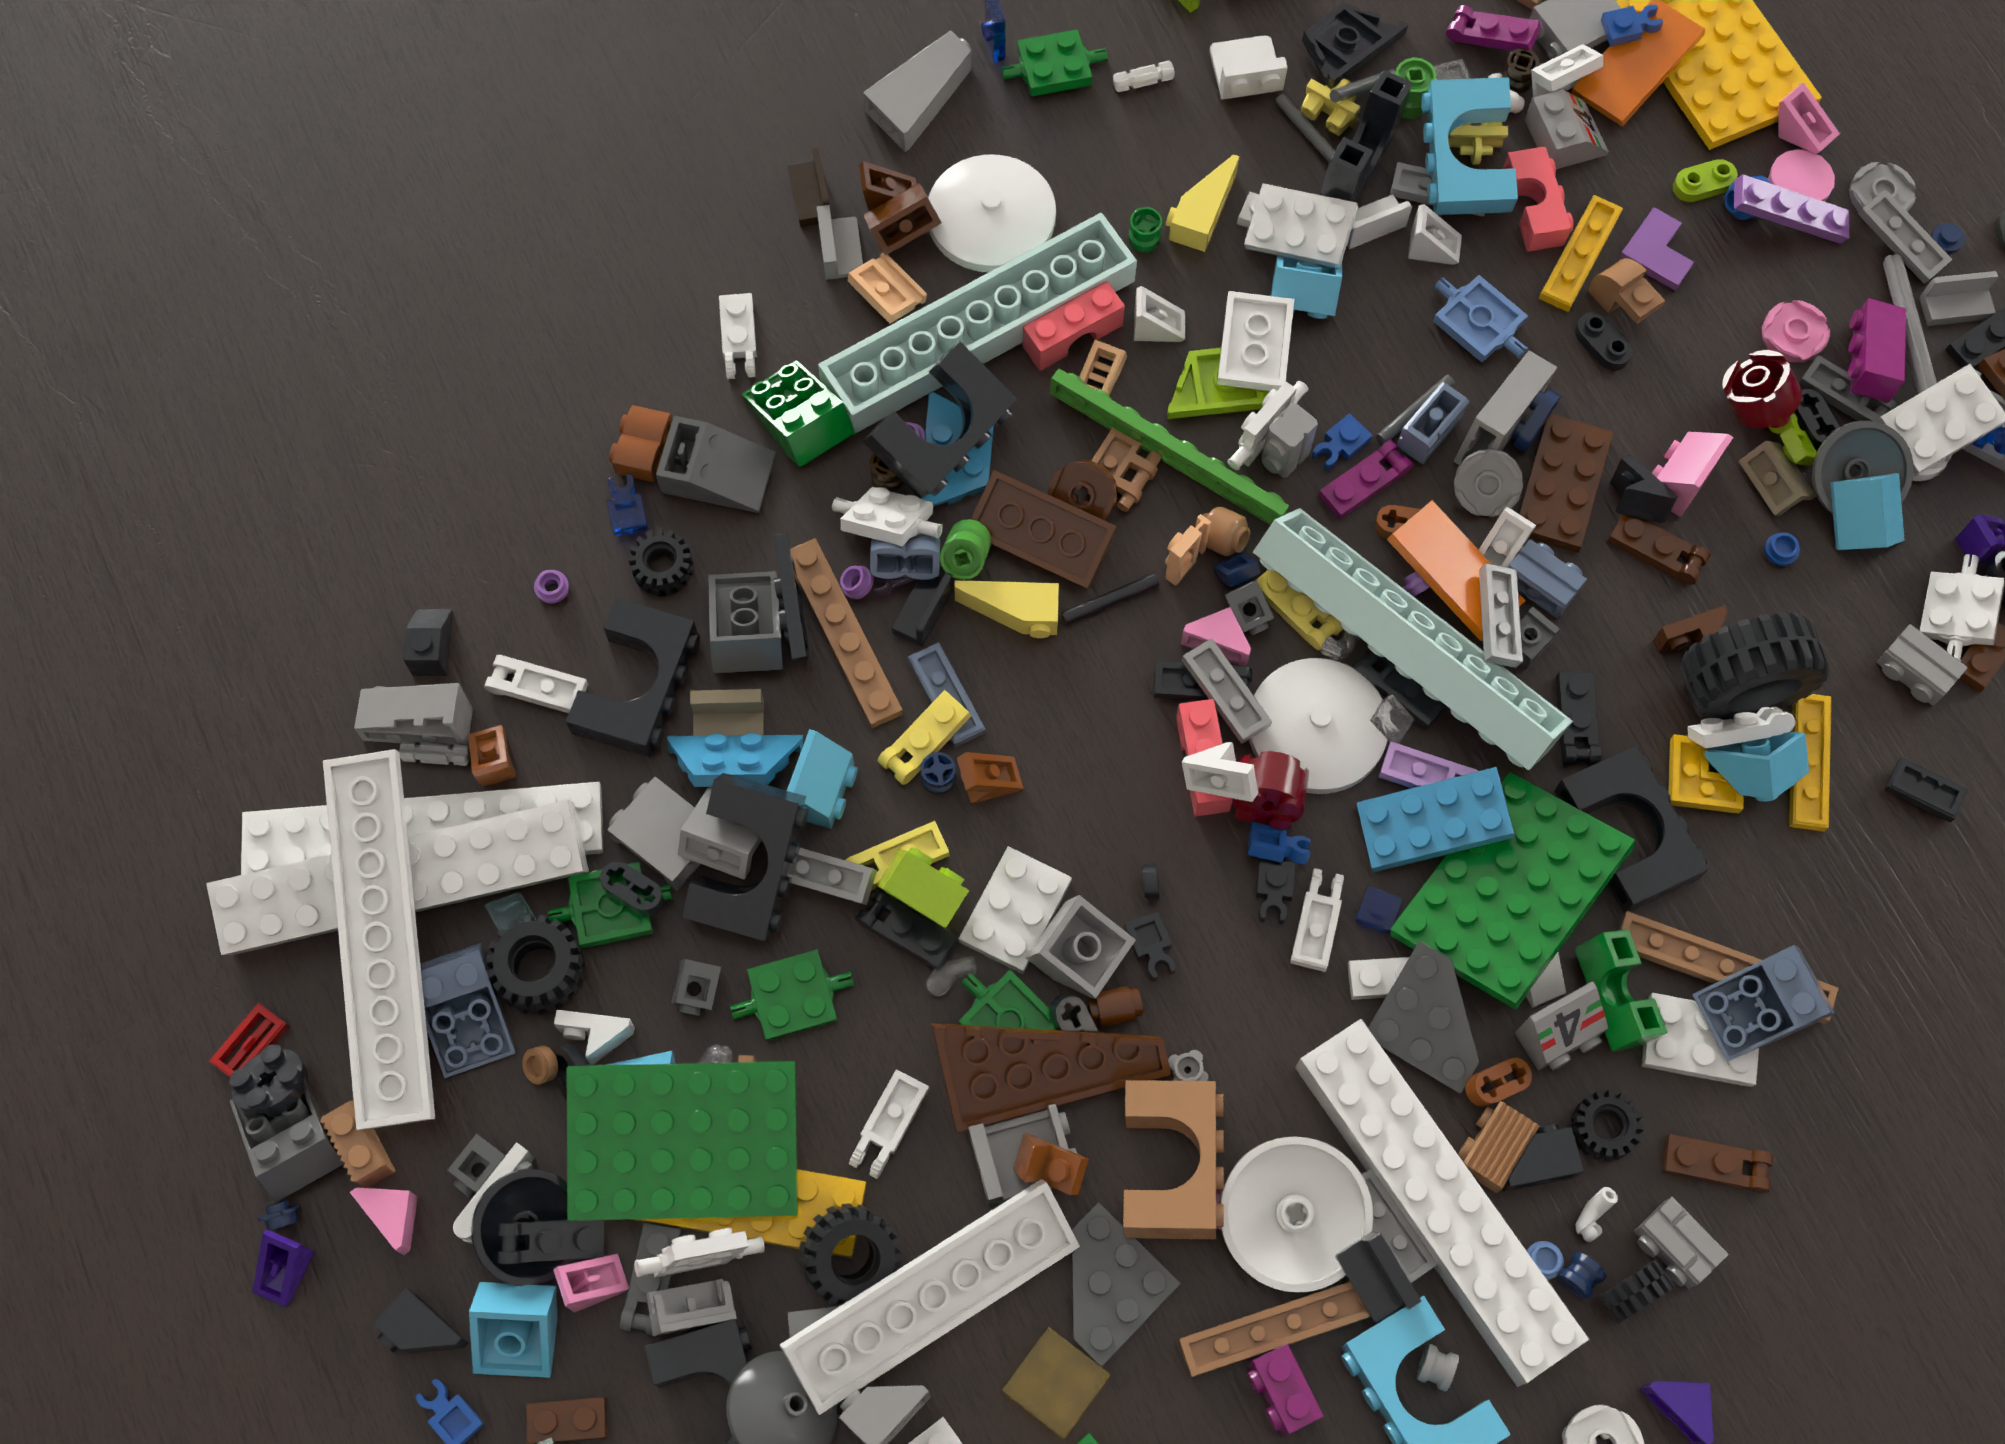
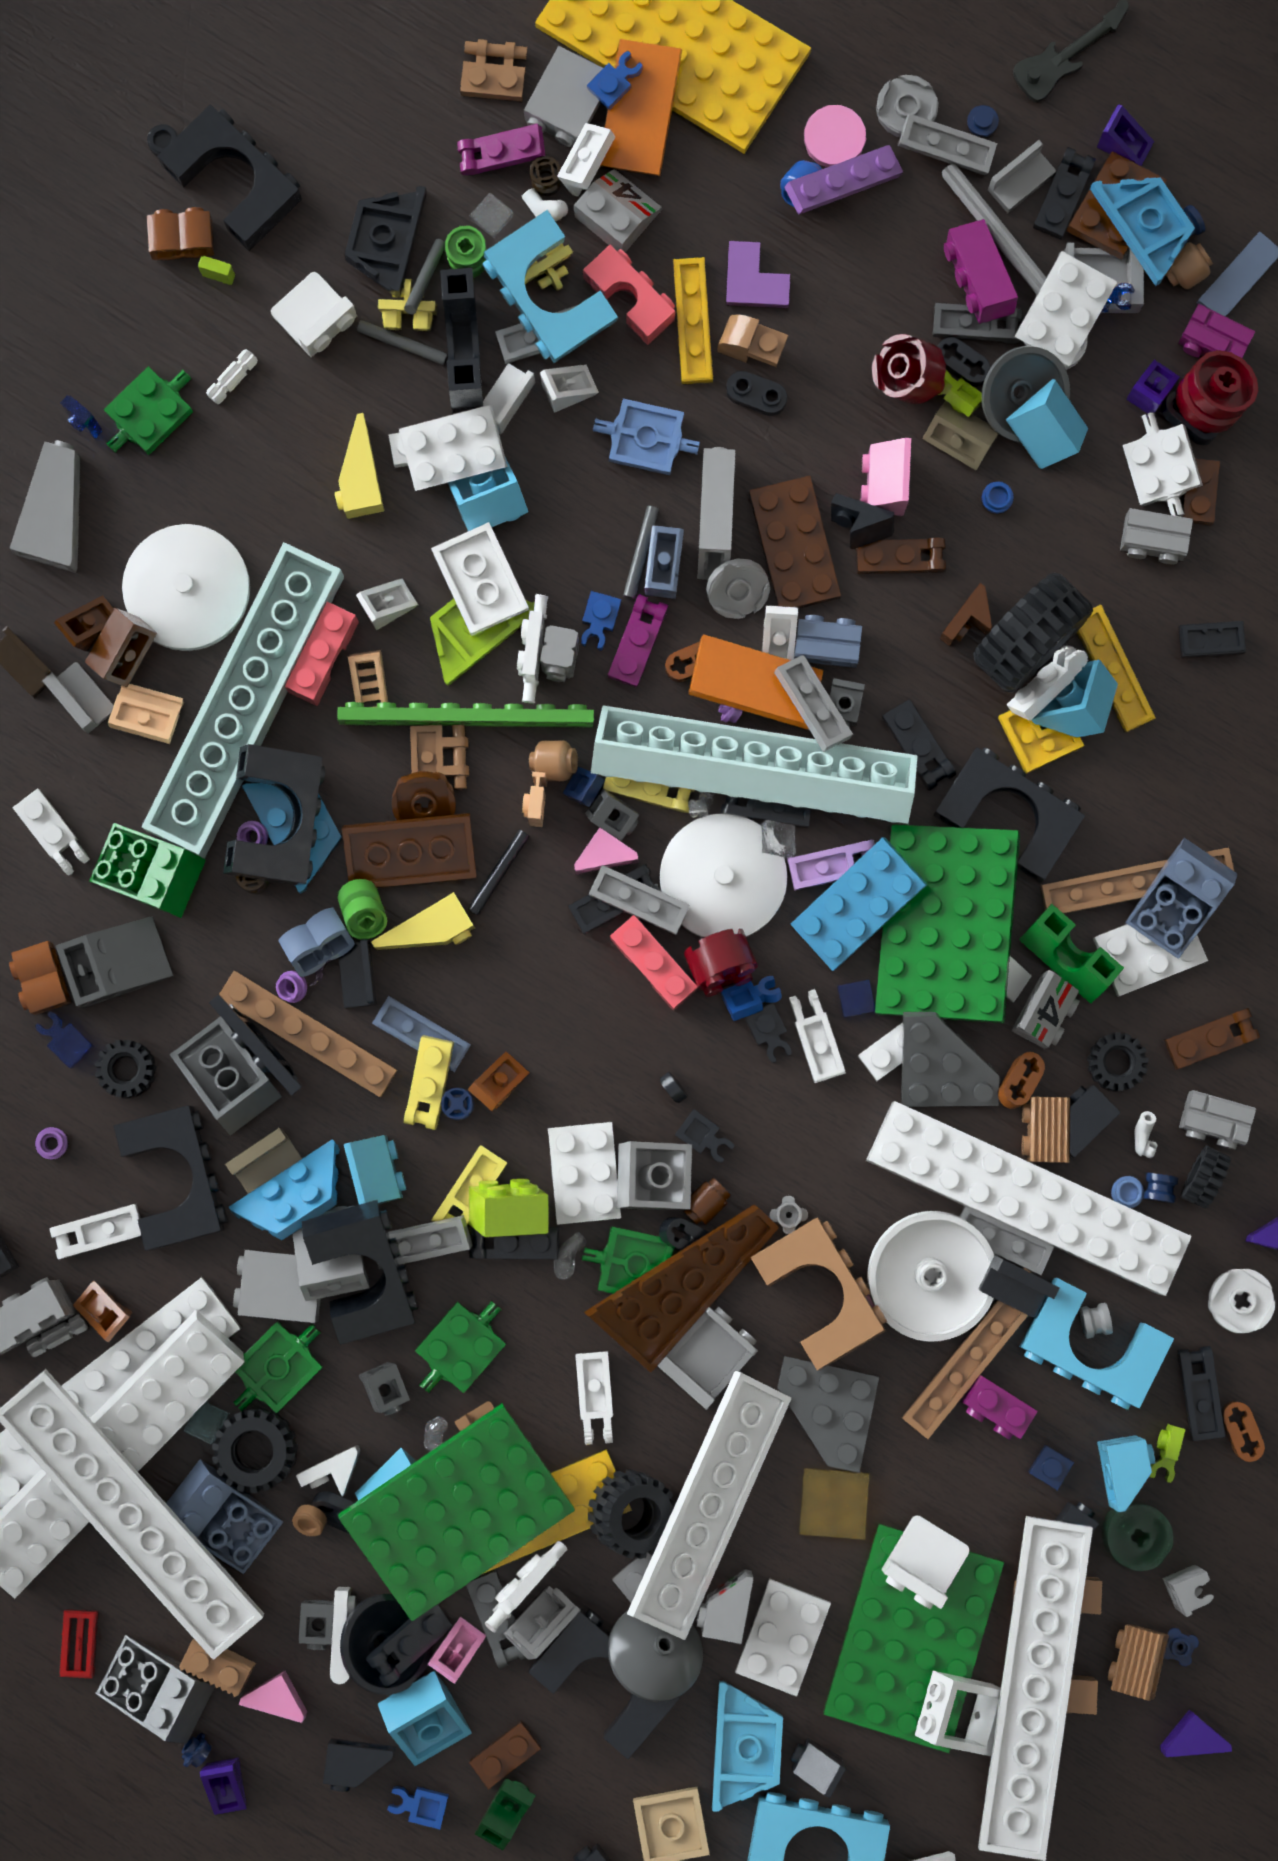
camera: 30 degrees left, 15 degrees up
(250, 1082) = (103, 1661): black plate -> none
(627, 895) = (287, 1356): black beam -> none
(887, 516) = (281, 920): white plate -> none
(1051, 1163) = (733, 1354): dark orange slope -> none
(1145, 229) = (324, 520): green wheel -> none
(1219, 774) = (676, 981): white slope -> none
(1542, 408) = (744, 495): dark blue plate -> none
(1707, 178) = (756, 184): lime plate -> none
(1796, 331) = (905, 287): bright pink tile -> none
(1804, 121) = (810, 83): bright pink slope -> none

